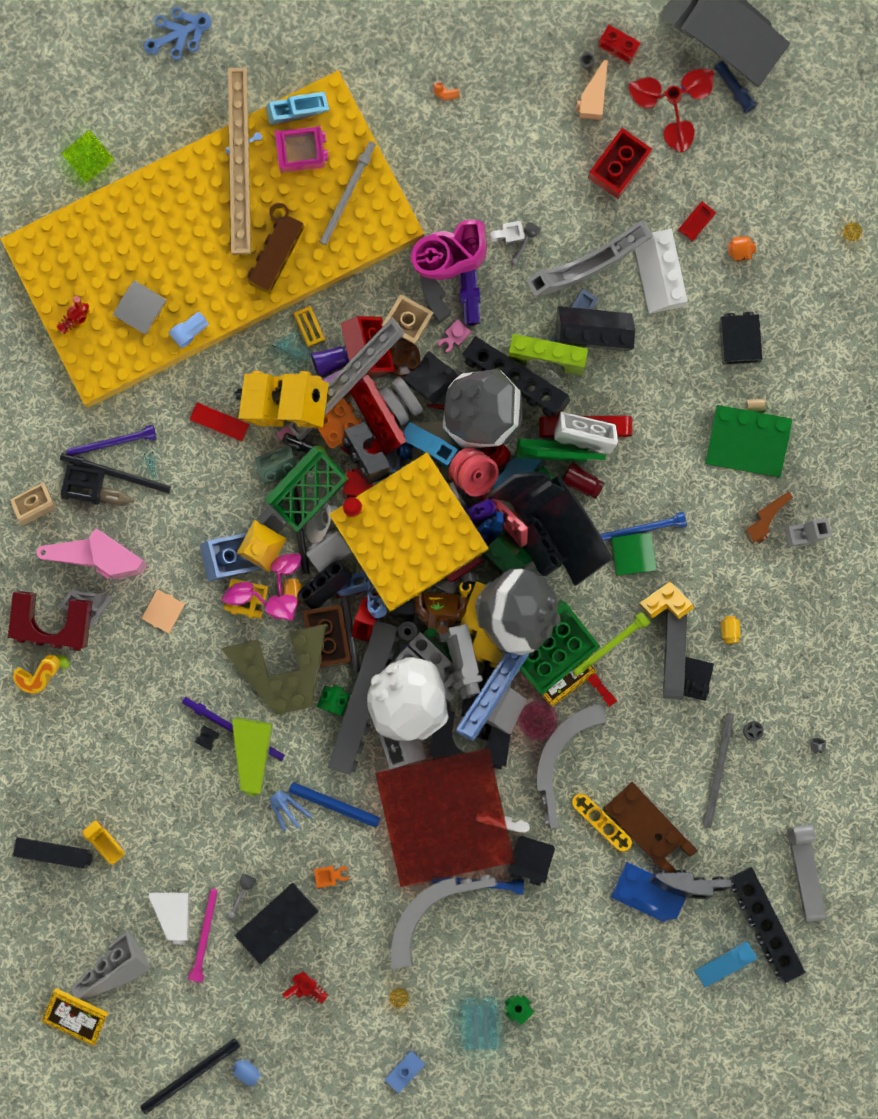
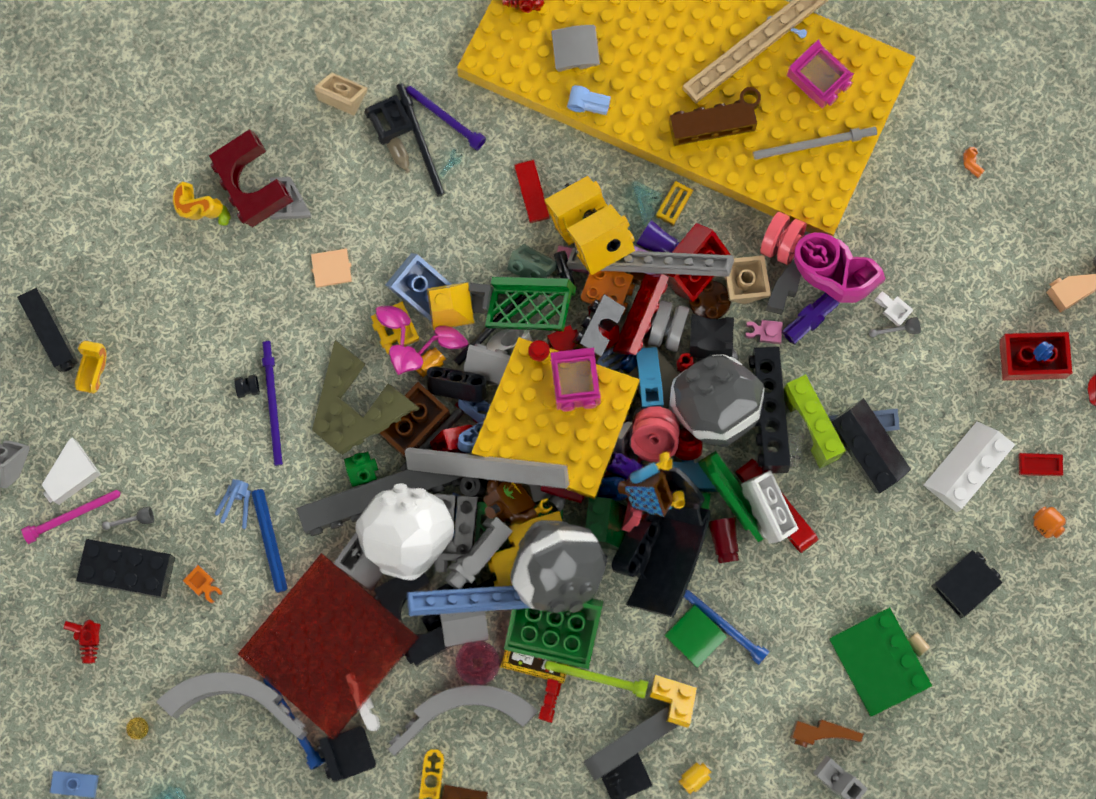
camera: 55 degrees right, 5 degrees down
(97, 551) = (340, 175): bright pink slope -> none
(252, 751) = (261, 433): lime slope -> none
(296, 107) = (853, 45): medium azure slope -> none
(394, 497) = (575, 379): none -> dark pink window
(399, 270) = (782, 237): none -> coral wheel
(408, 608) = (487, 467): none -> light grey tile
(432, 411) = (684, 362): none -> red pin
(513, 505) = (649, 489): none -> torso
(567, 275) = (888, 380): light grey arch -> none
(623, 156) = (1043, 351): none -> blue plate

